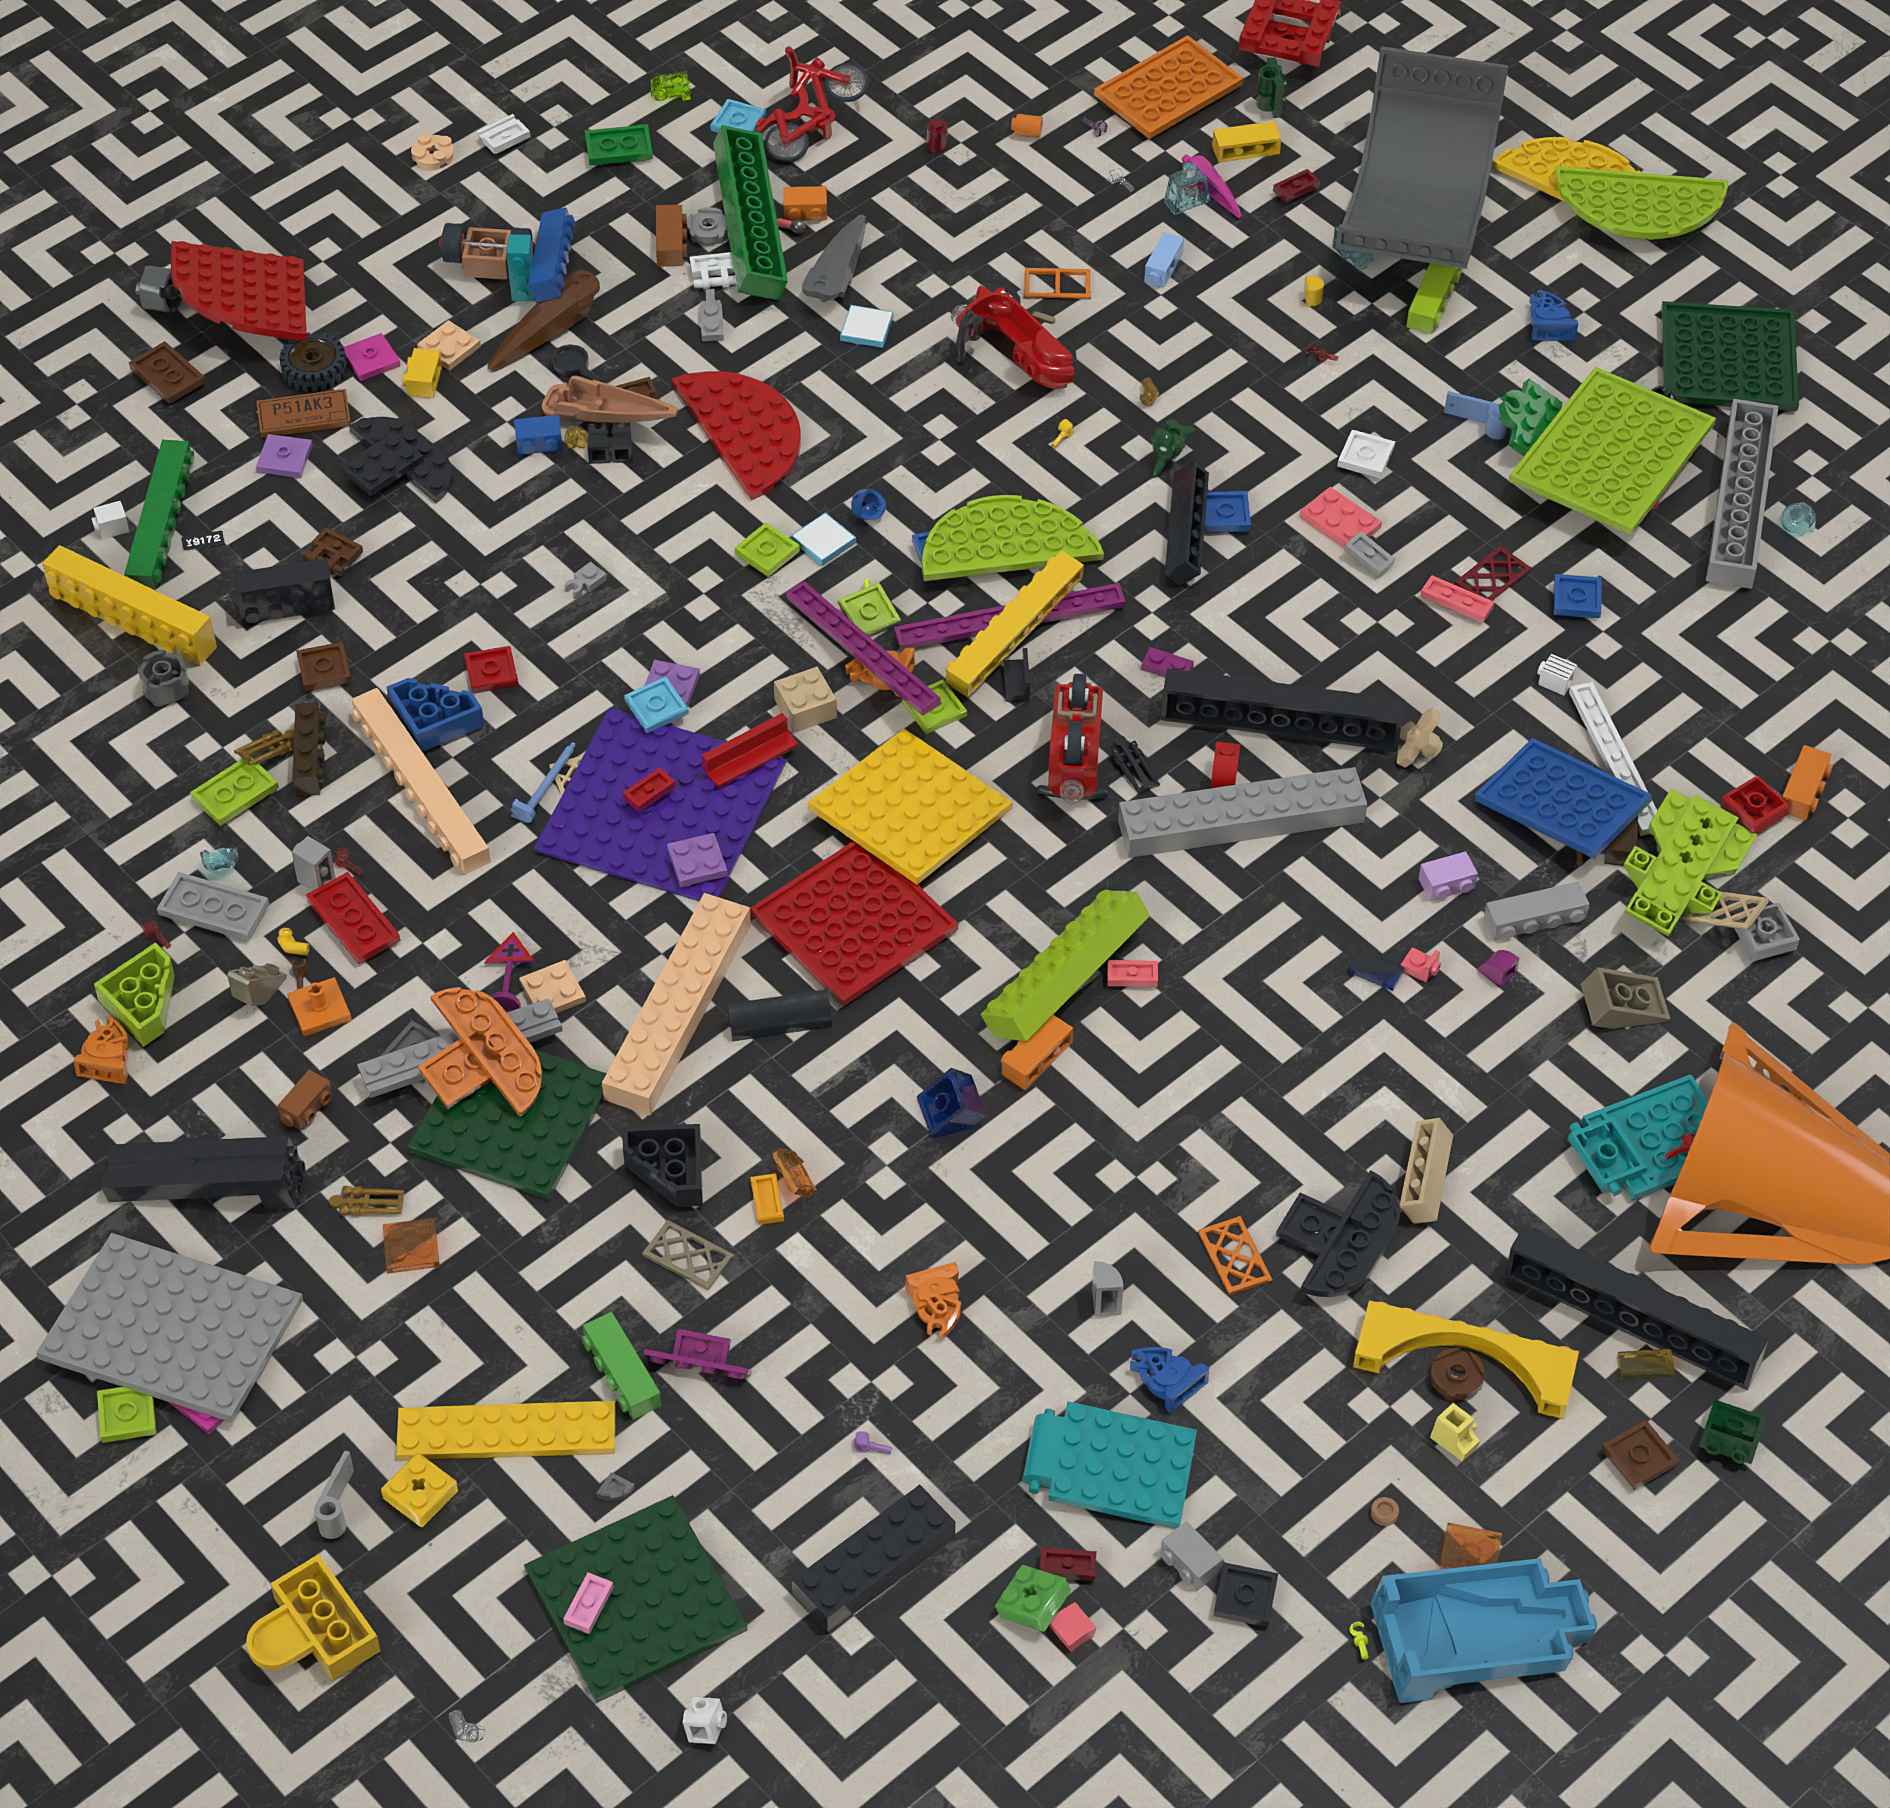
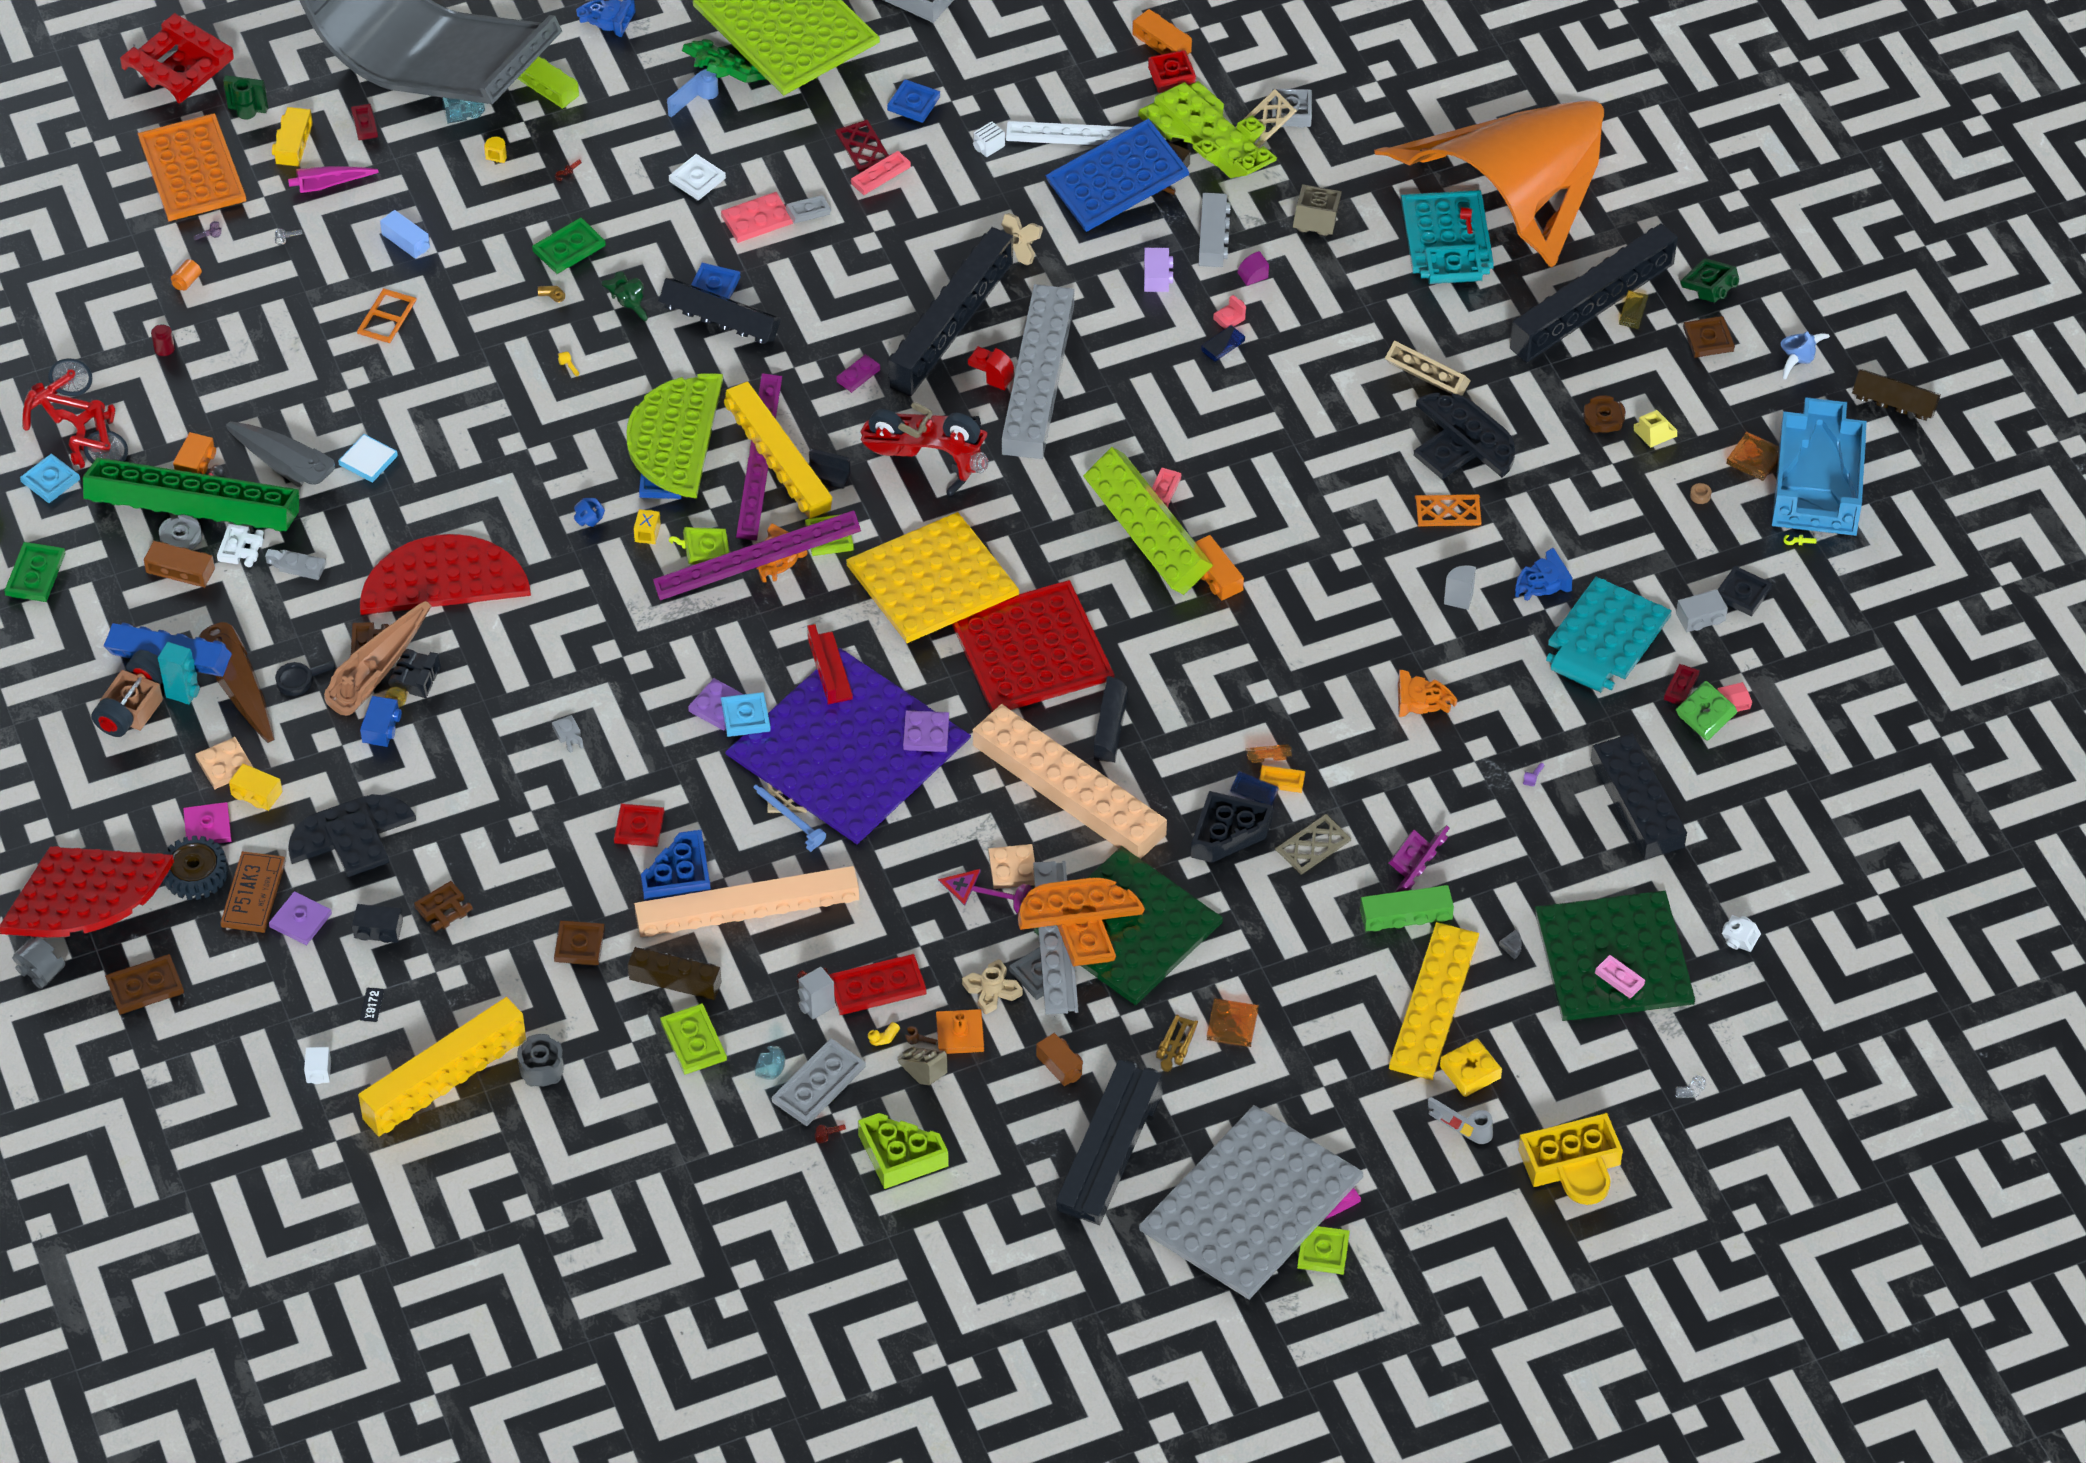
camera: 70 degrees left, 0 degrees up
(104, 1053) = (946, 1191): orange piece -> none
(159, 513) = (328, 1026): green brick -> none
(268, 741) = (661, 994): pearl gold piece -> none
(284, 591) = (485, 946): black brick -> none
(292, 510) = (377, 923): none -> black brick
(383, 1015) = (991, 986): none -> tan plant
(649, 789) = (839, 741): red plate -> none
(738, 1175) = (1254, 789): none -> clear blue tile
(767, 549) = (600, 596): lime plate -> none
(805, 699) = (786, 613): tan brick -> none
(823, 539) = (605, 556): white tile -> none
(873, 556) = (647, 526): none -> yellow brick
(951, 1104) = (1244, 636): clear blue slope -> none
(1035, 349) = (422, 356): red piece -> none
(1186, 189) = (333, 183): clear light blue torso -> none
(1217, 384) = (568, 245): none -> green plate
(1540, 1366) = (1619, 364): yellow arch -> none
(1647, 1687) = (1896, 394): none -> dark brown brick
(1668, 1559) = (1800, 349): none -> medium blue helmet

